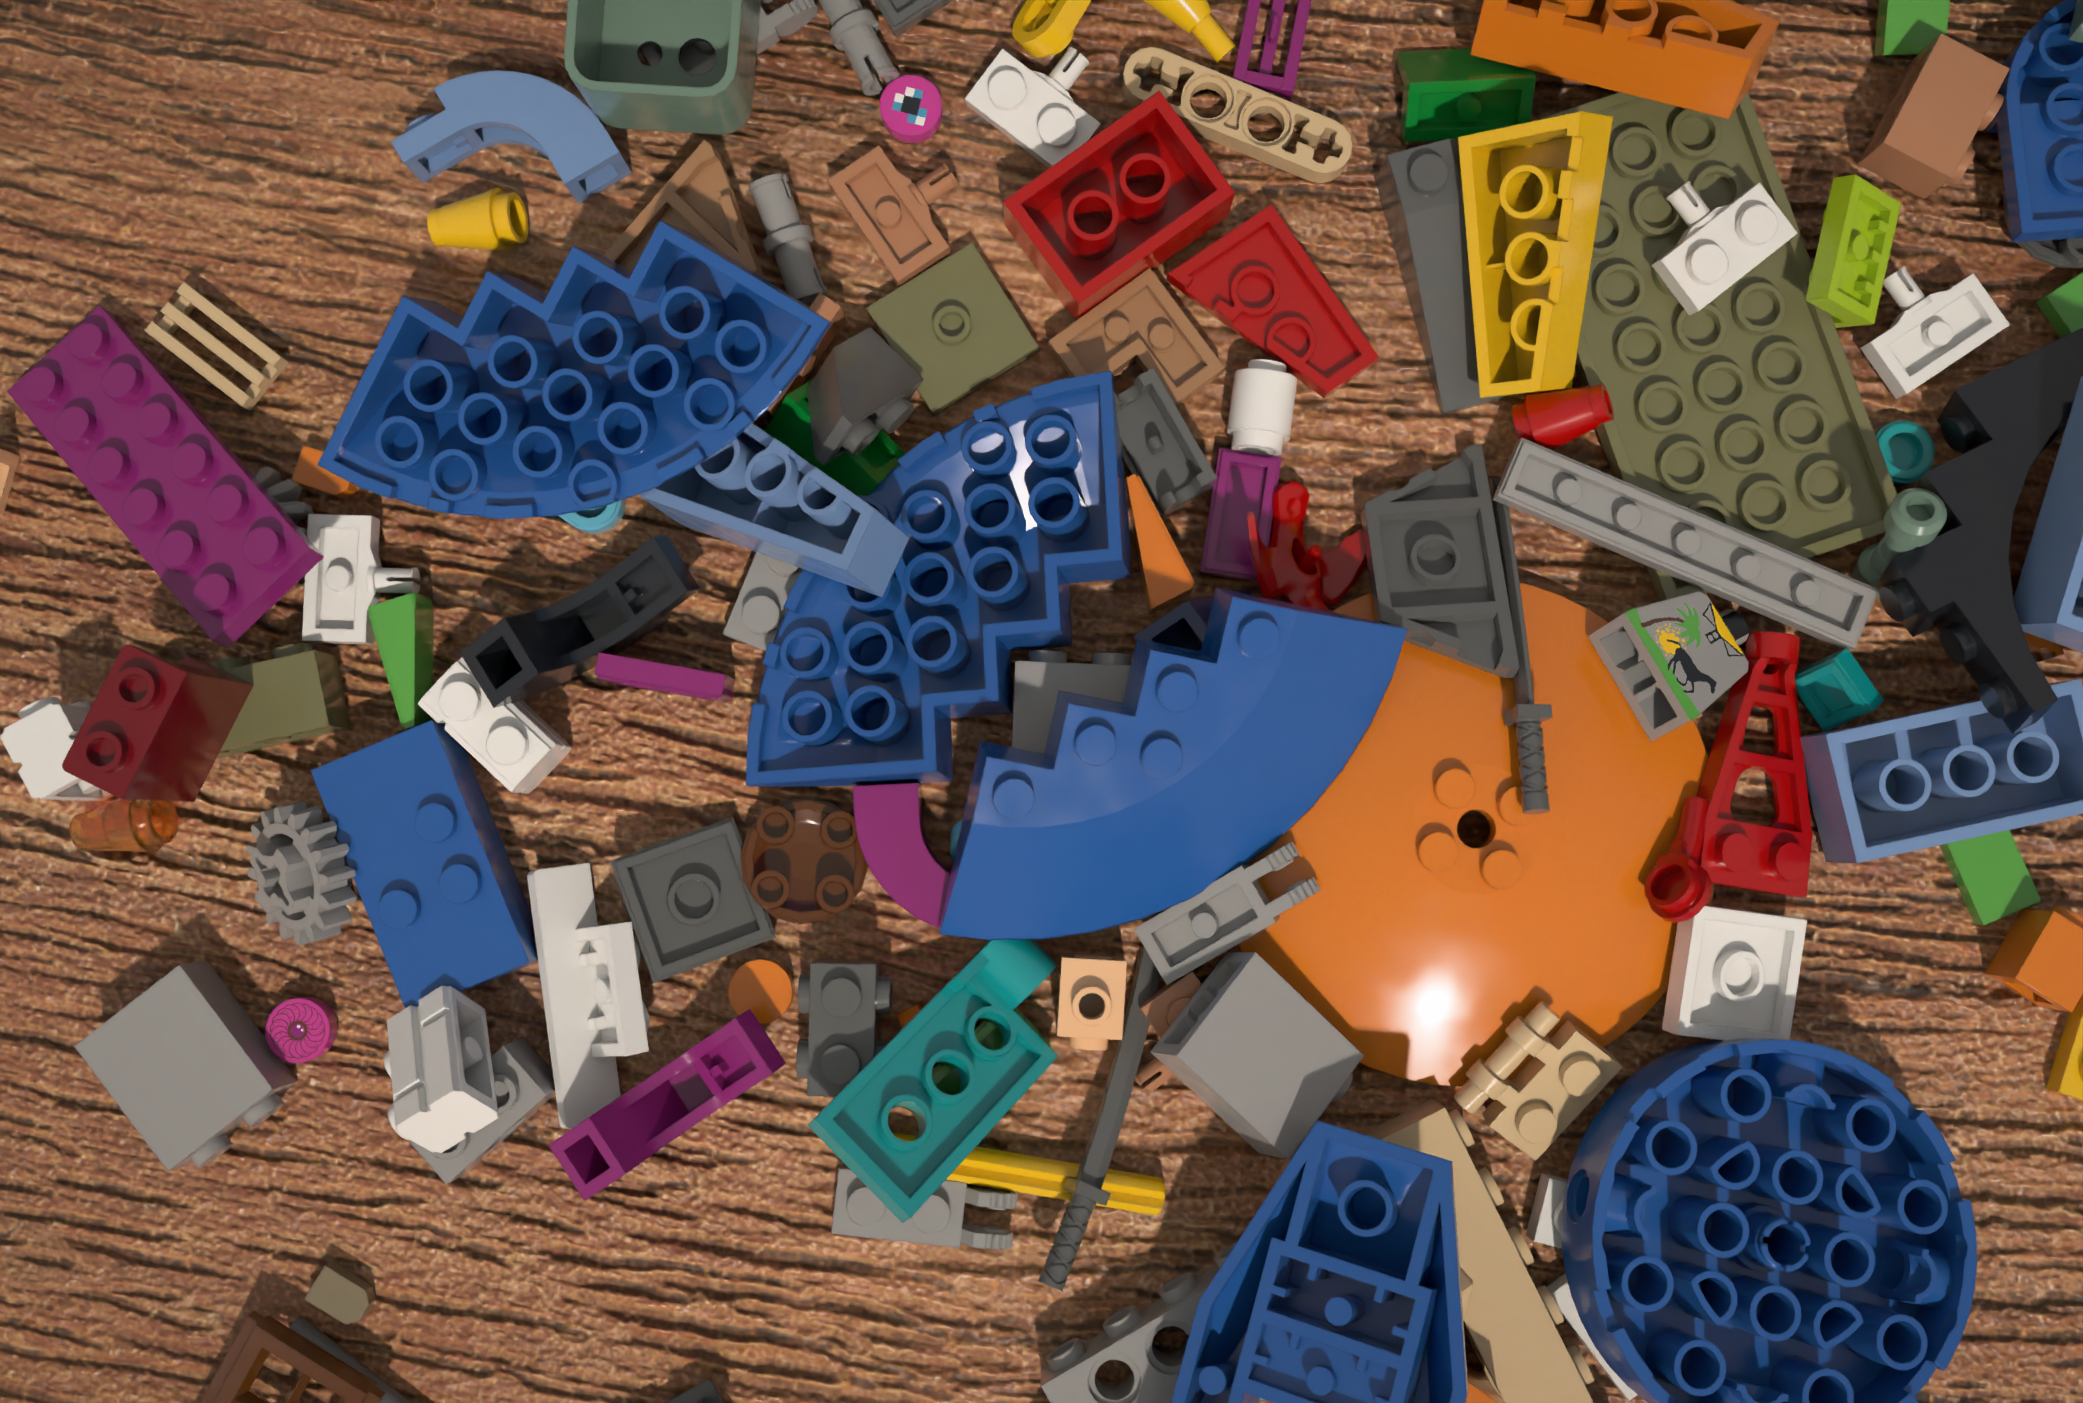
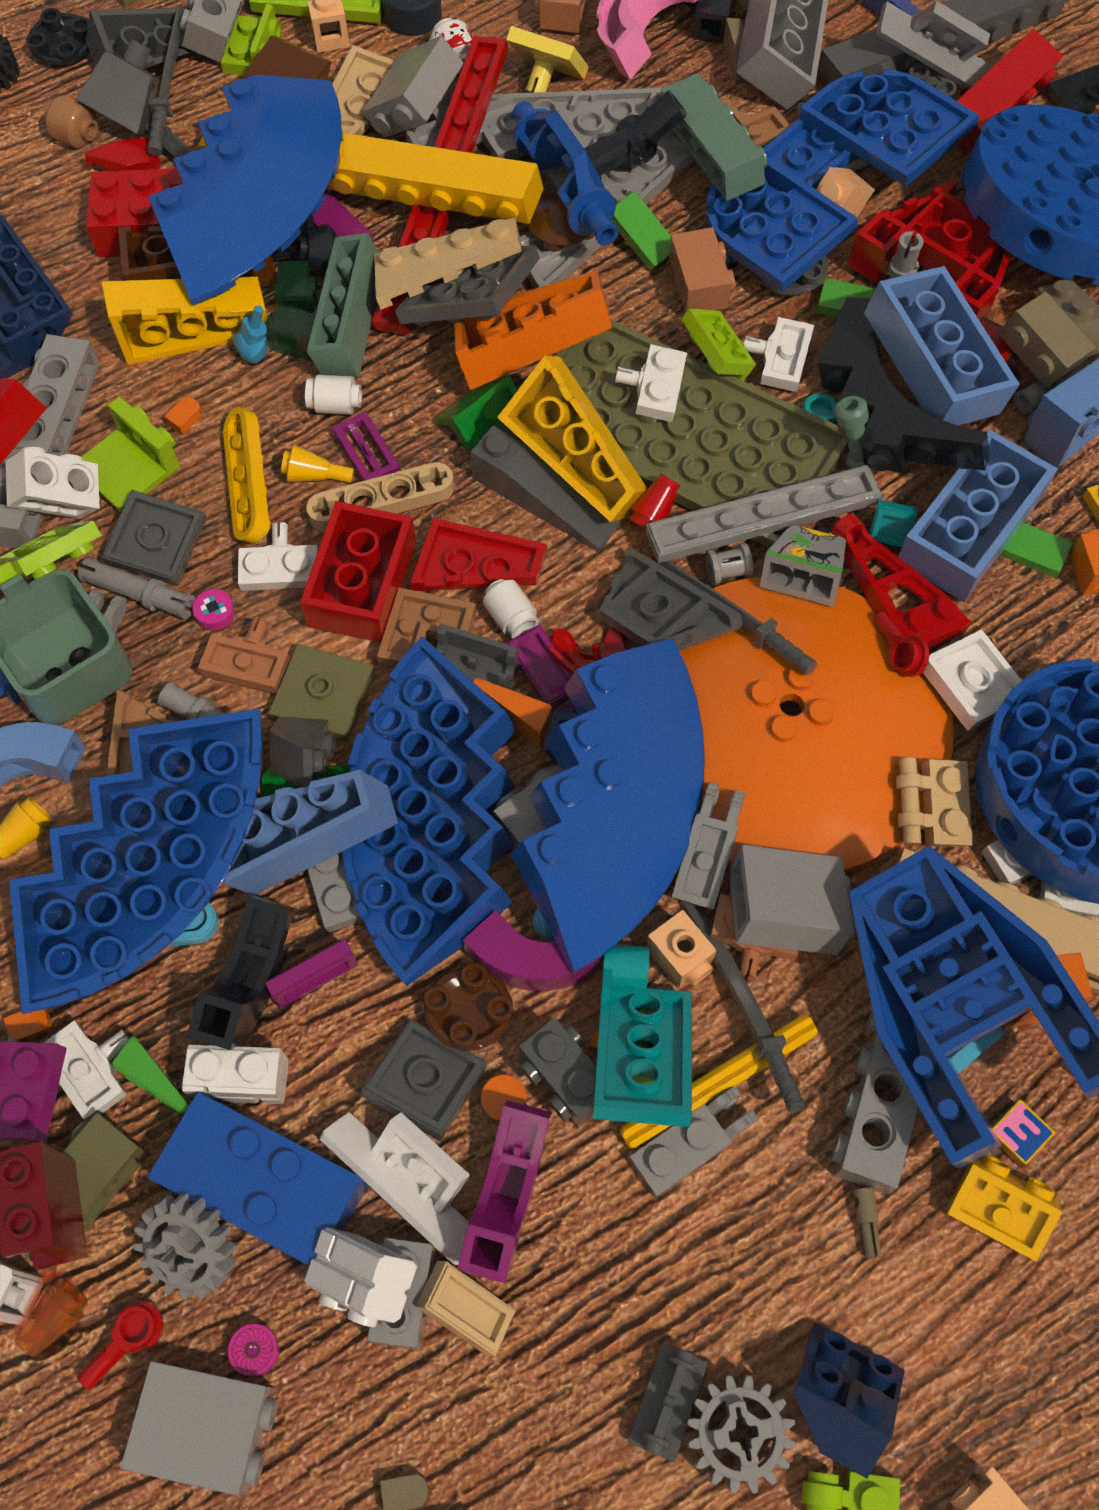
camera: 40 degrees left, 20 degrees down
(200, 908) = (135, 1330): none -> red plate
(532, 1182) = (465, 1308): none -> tan tile
(1595, 589) = (729, 564): none -> light grey bush

